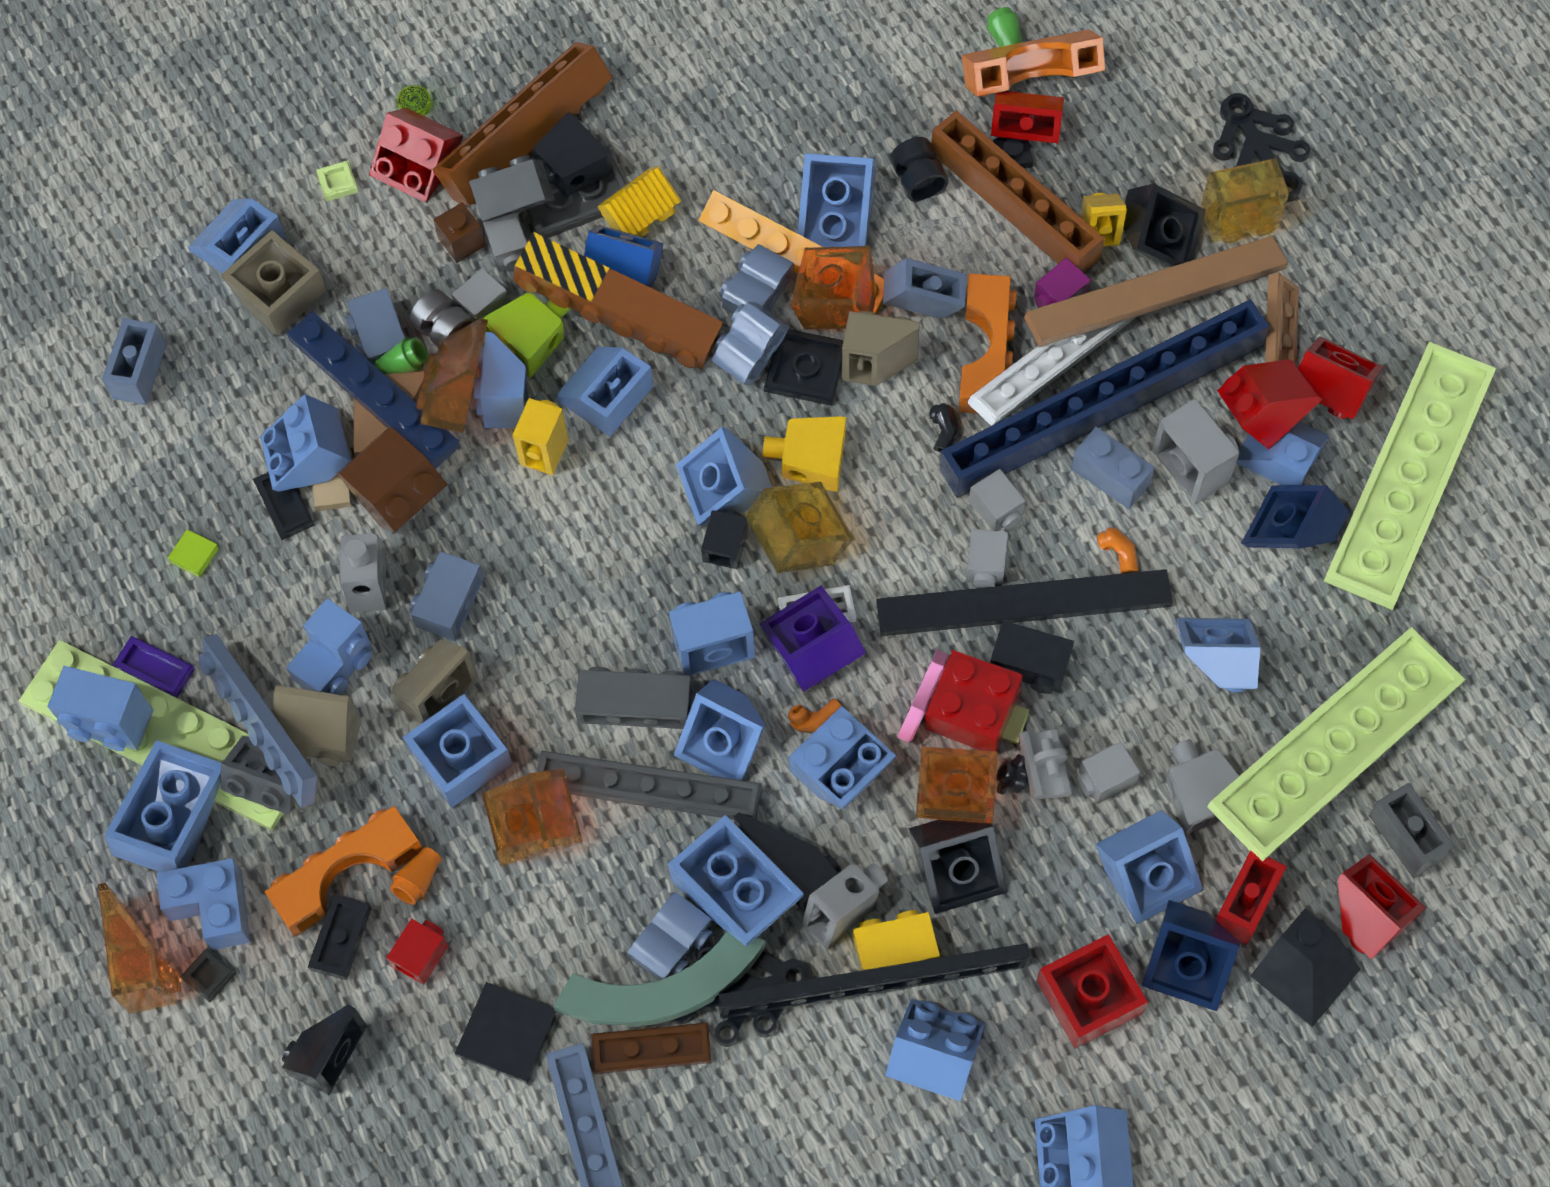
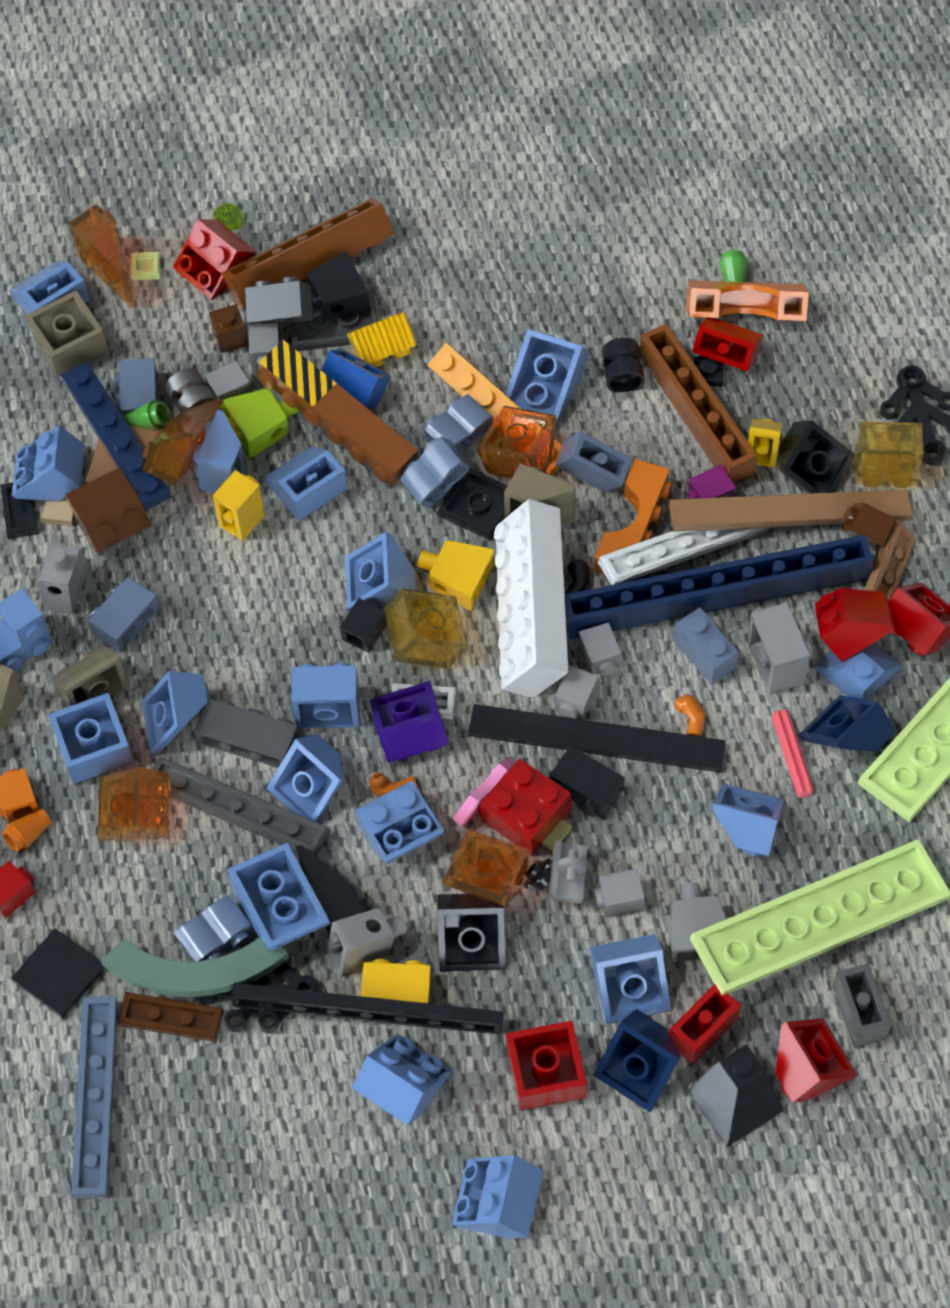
camera: 15 degrees right, 5 degrees down
(284, 175) = (101, 251): none -> clear orange slope
(540, 692) = (172, 707): none -> medium blue slope
(906, 463) = (531, 599): none -> white brick
(1243, 565) = (793, 753): none -> coral axle
(1245, 282) = (867, 521): none -> reddish brown brick

